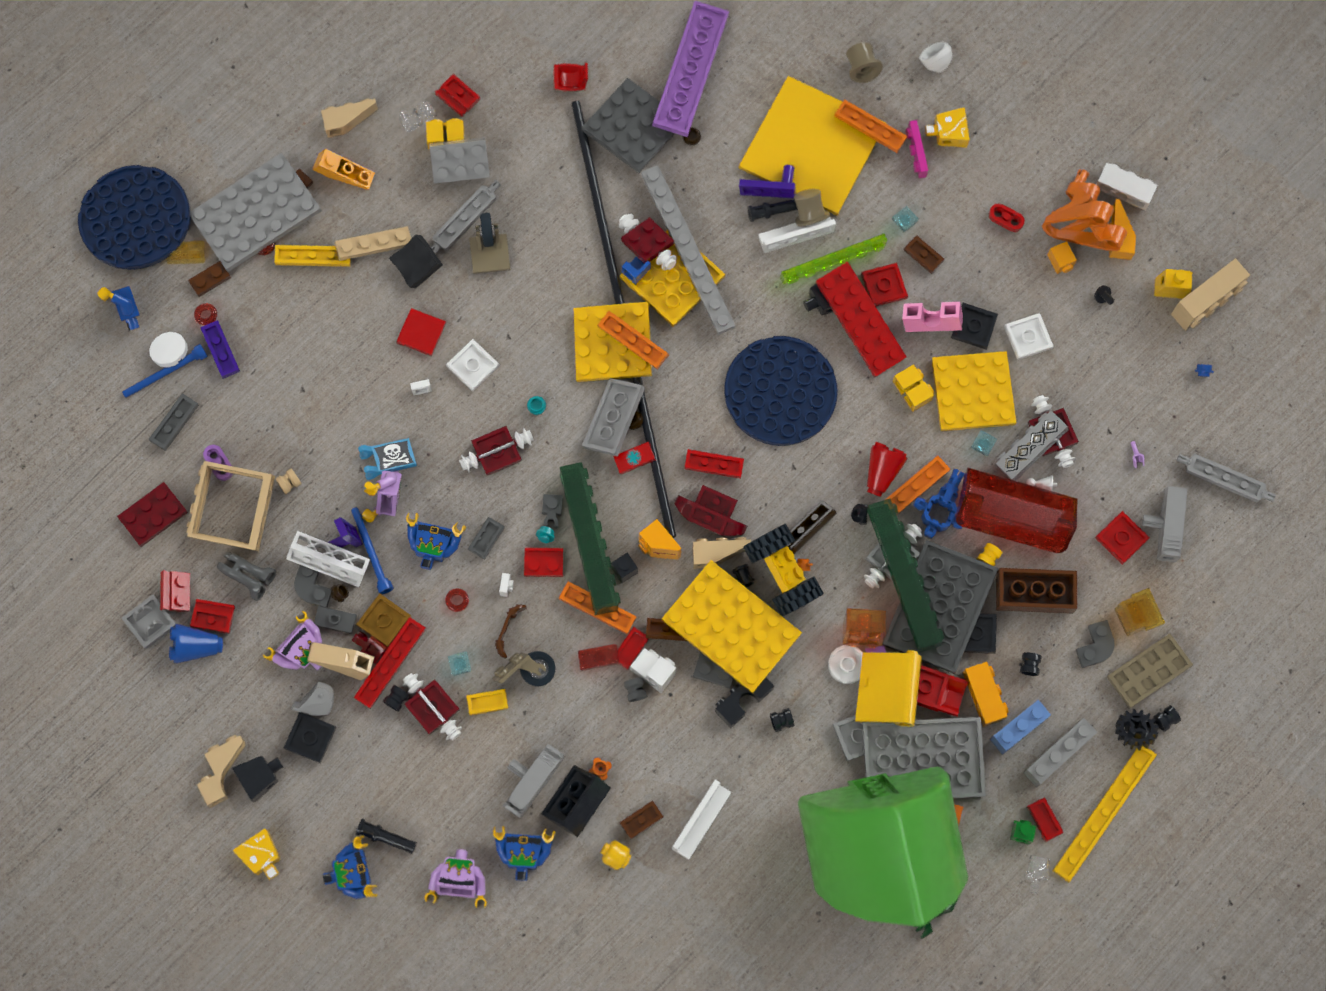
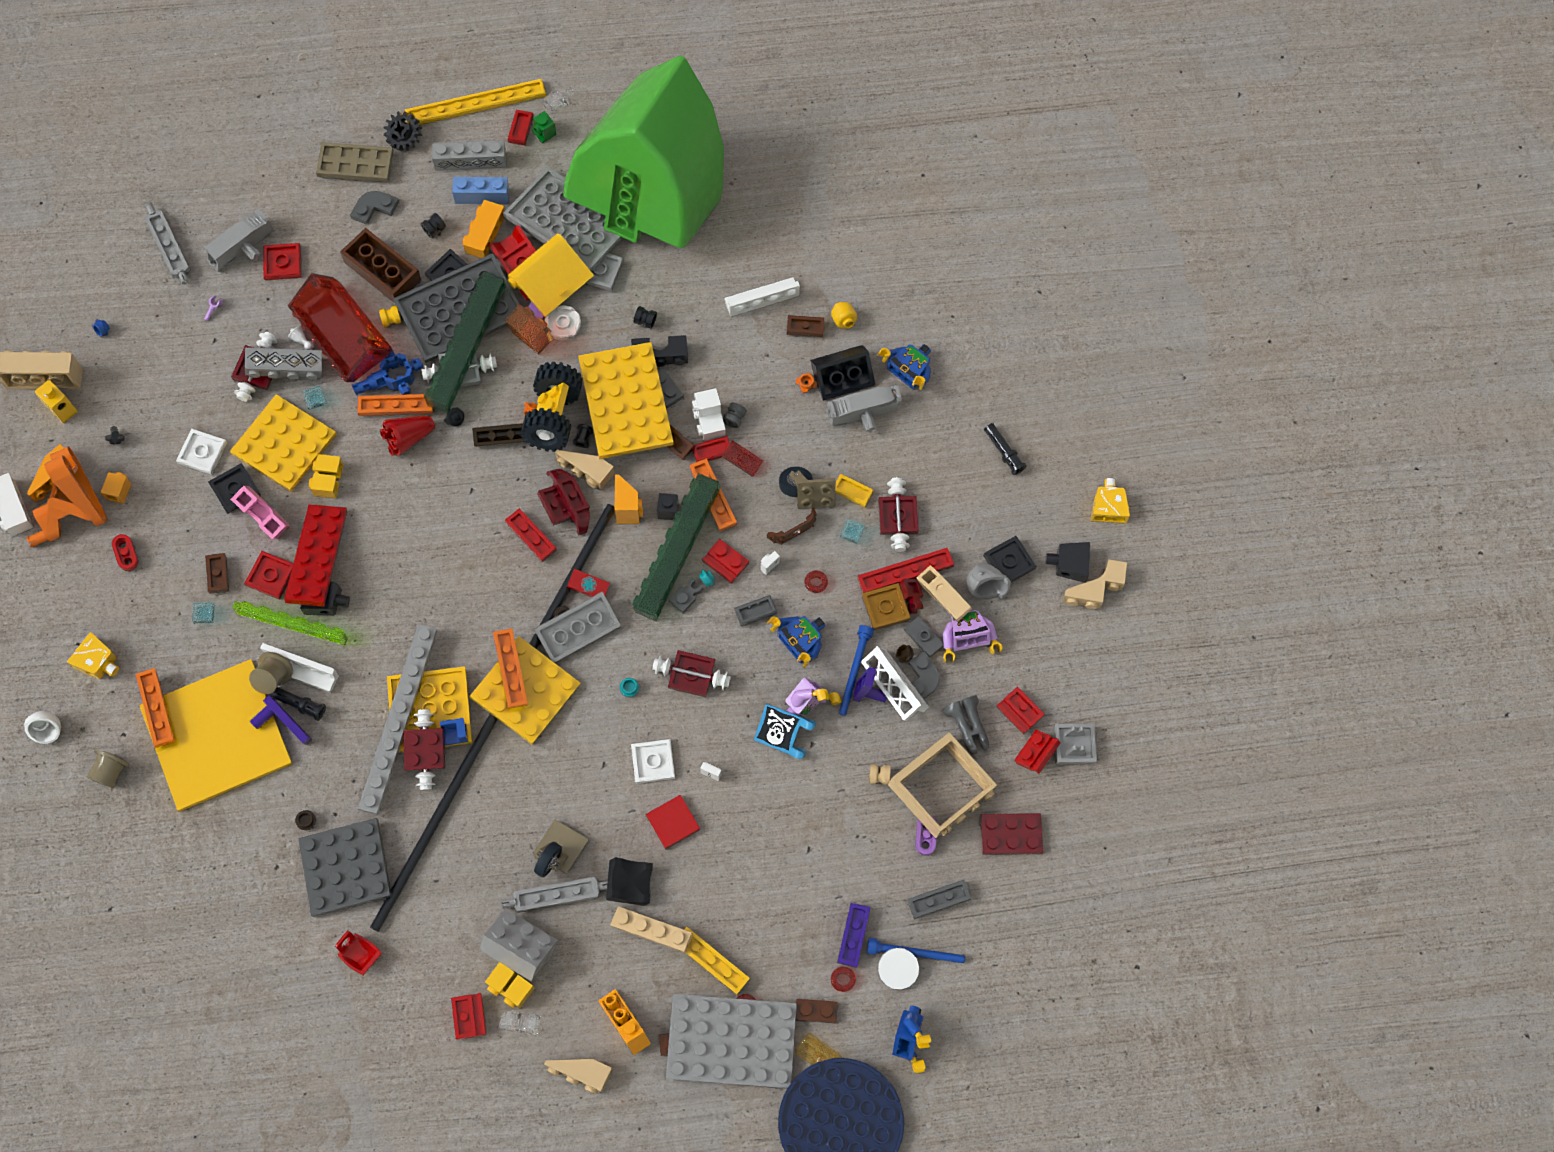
camera: 140 degrees left, 5 degrees down
(192, 644) = (1054, 696): blue cone -> none
(351, 871) = (1049, 439): torso -> none
(396, 698) = (921, 540): black wheel -> none
(457, 878) = (973, 380): lavender torso -> none
(690, 68) = (250, 878): medium lavender plate -> none
(780, 390) = (428, 555): dark blue tile -> none
(916, 149) = (137, 661): dark pink plate -> none
(1139, 613) = (324, 199): clear yellow plate -> none
(1167, 718) = (374, 124): black wheel -> none

